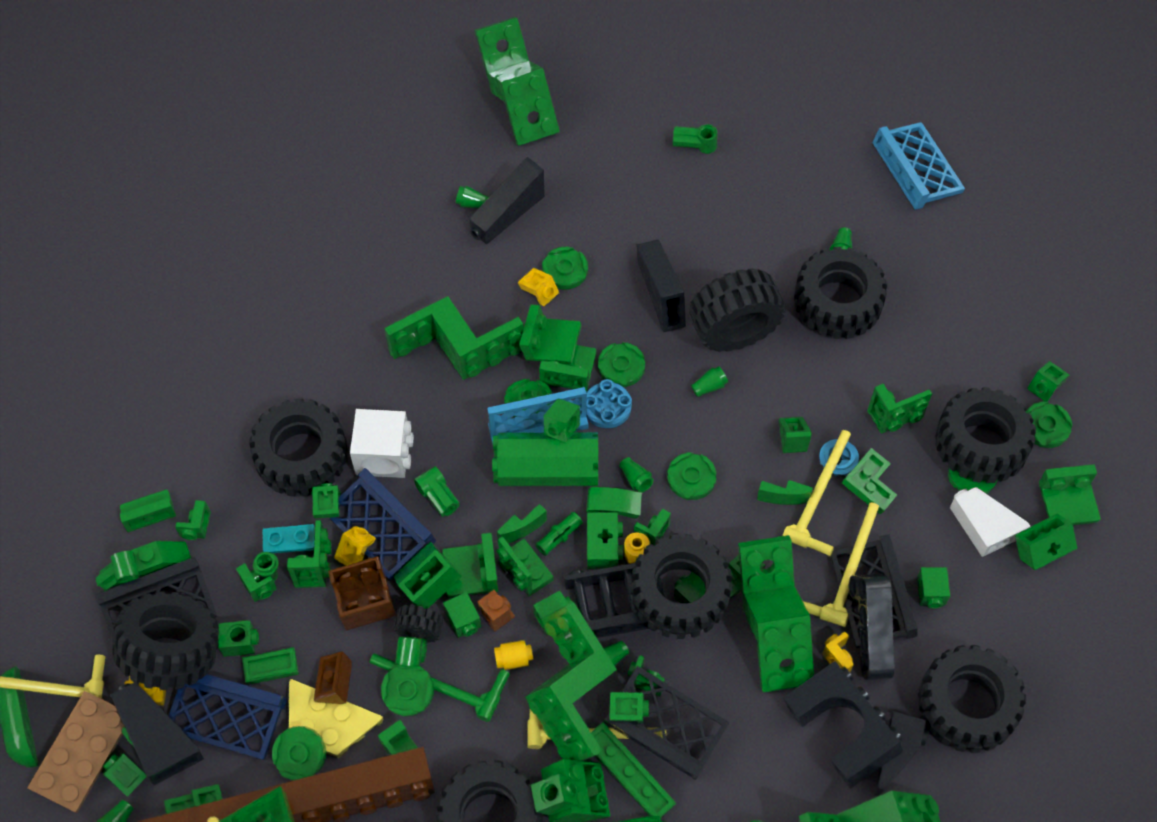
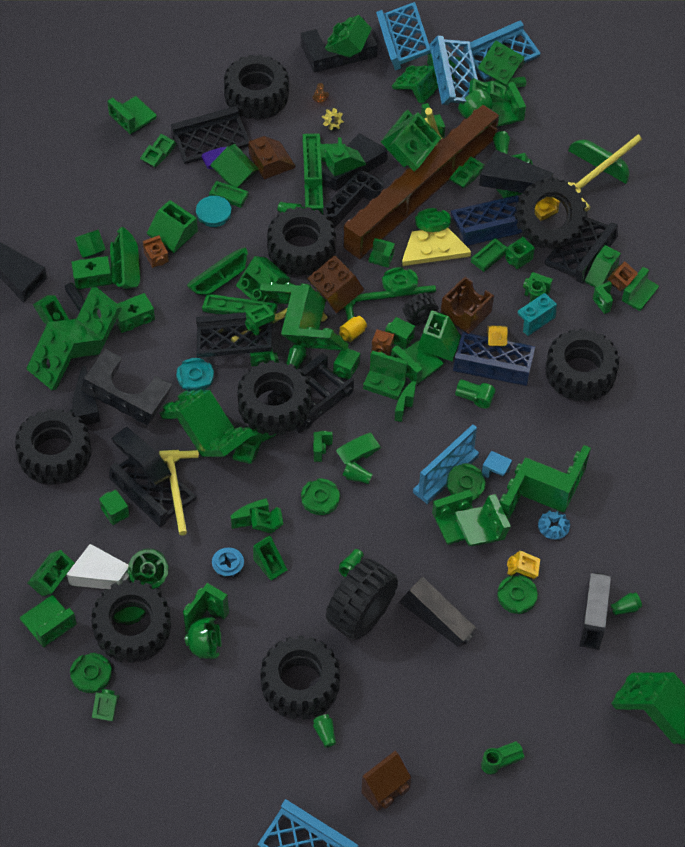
camera: 145 degrees right, 5 degrees down
(79, 753) = (550, 154): medium nougat plate -> none
(119, 571) = (616, 241): green piece -> none
(154, 524) = (622, 276): none -> dark orange brick
(312, 571) = (509, 307): green bracket -> none
(326, 501) = (537, 347): green bracket -> none
(333, 679) = (446, 262): reddish brown slope -> none
(381, 442) = (532, 392): white brick -> none
(411, 651) = (410, 288): green piece -> none
(483, 307) = (554, 532): none -> dark azure gear
(483, 393) = (497, 464): none -> dark azure panel
(497, 714) = (335, 284): none -> reddish brown piece
(545, 461) = (418, 441): green brick -> none
(545, 794) = (269, 255): green brick -> none
(559, 533) = (379, 412): green pin -> none
(561, 420) = (423, 447): green brick -> none
(600, 527) = (347, 419): green brick -> none
(608, 404) = (411, 511): dark azure tile -> none
(622, 364) = (422, 546): green tile -> none
(634, 546) = (321, 421): yellow brick -> none
(742, 710) = (195, 374): none -> teal tile
(772, 473) = (265, 520): none -> green bracket
(798, 533) = (223, 495): light yellow bar -> none
(818, 169) = (386, 782): none -> reddish brown slope
(833, 651) = (152, 431): yellow bracket -> none
(865, 484) = (200, 552): green plate -> none
(914, 380) = (203, 638): none -> green cylinder
(933, 486) = (149, 567): none -> green cylinder

